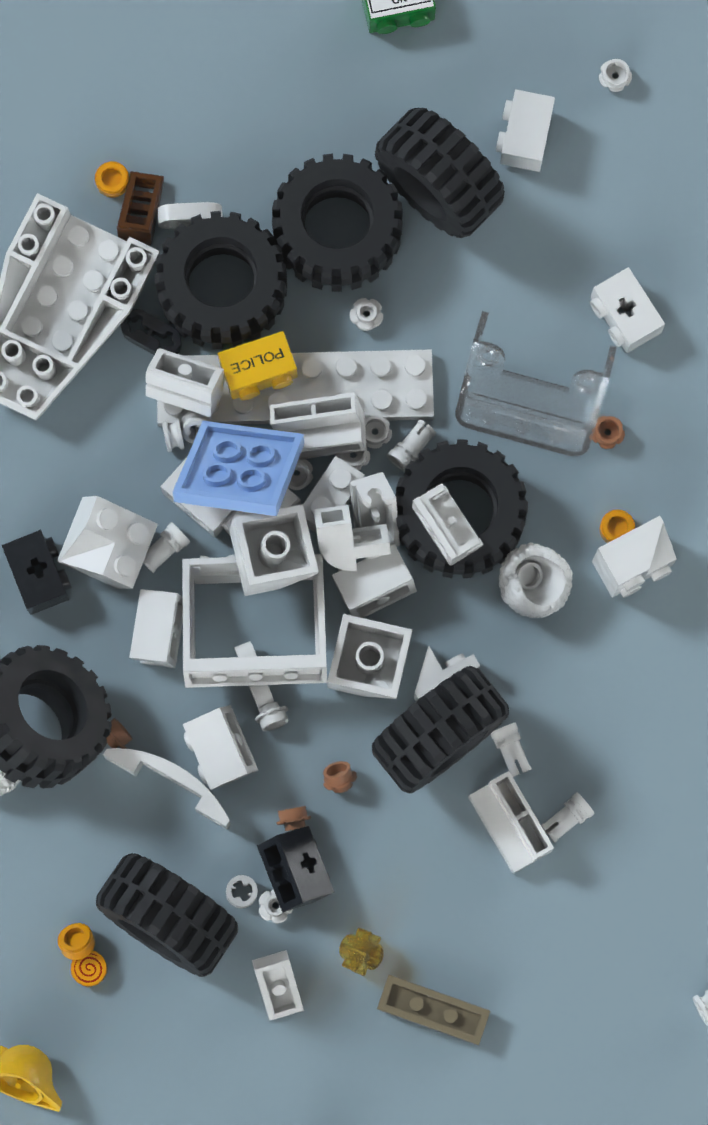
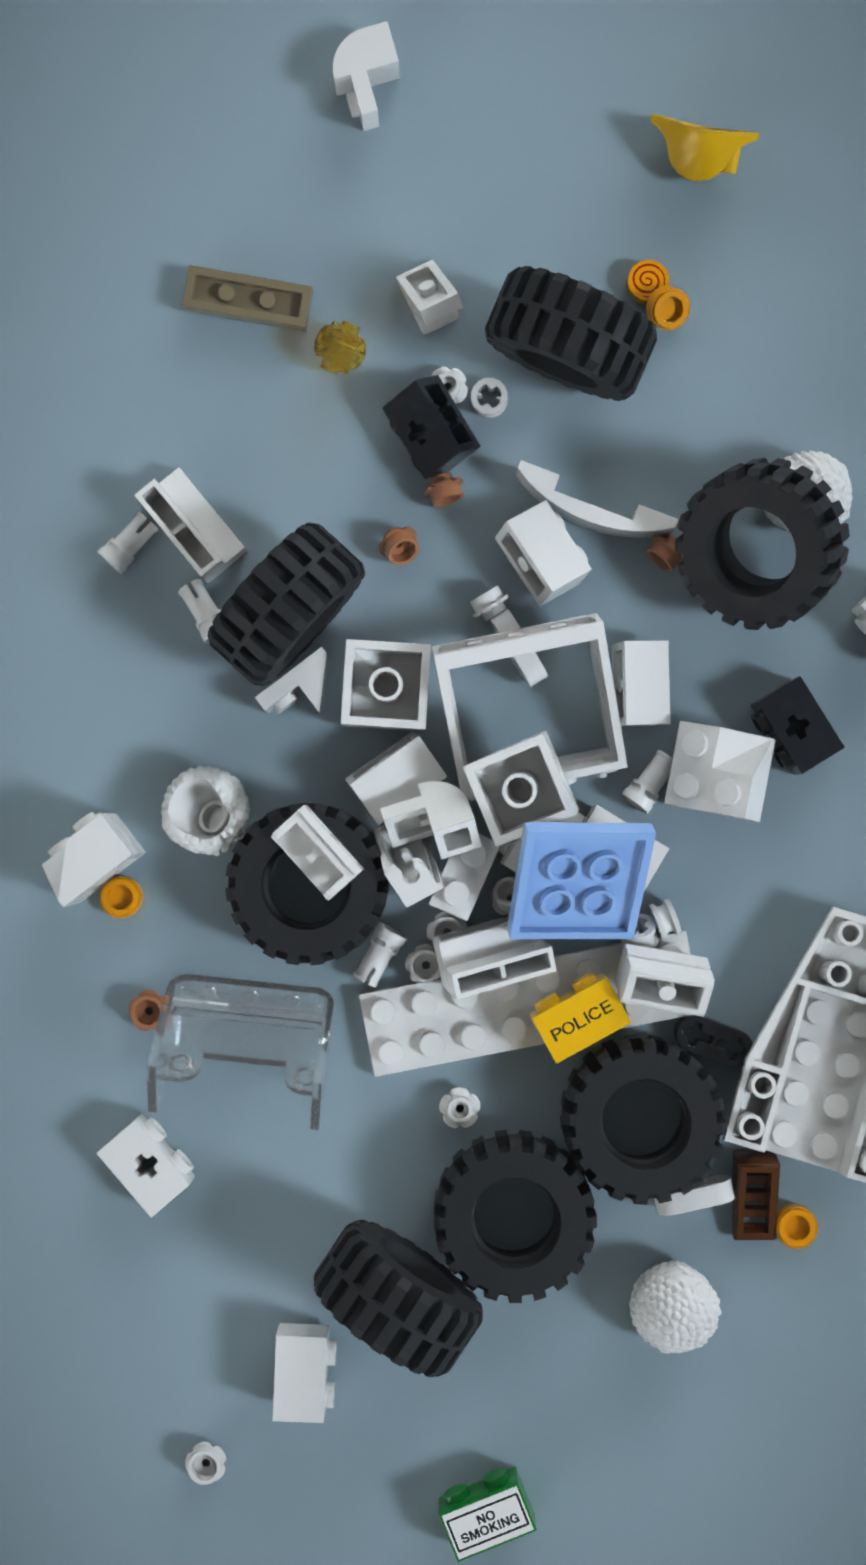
camera: 170 degrees right, 10 degrees up
(222, 132) = (674, 1307): none -> white hair

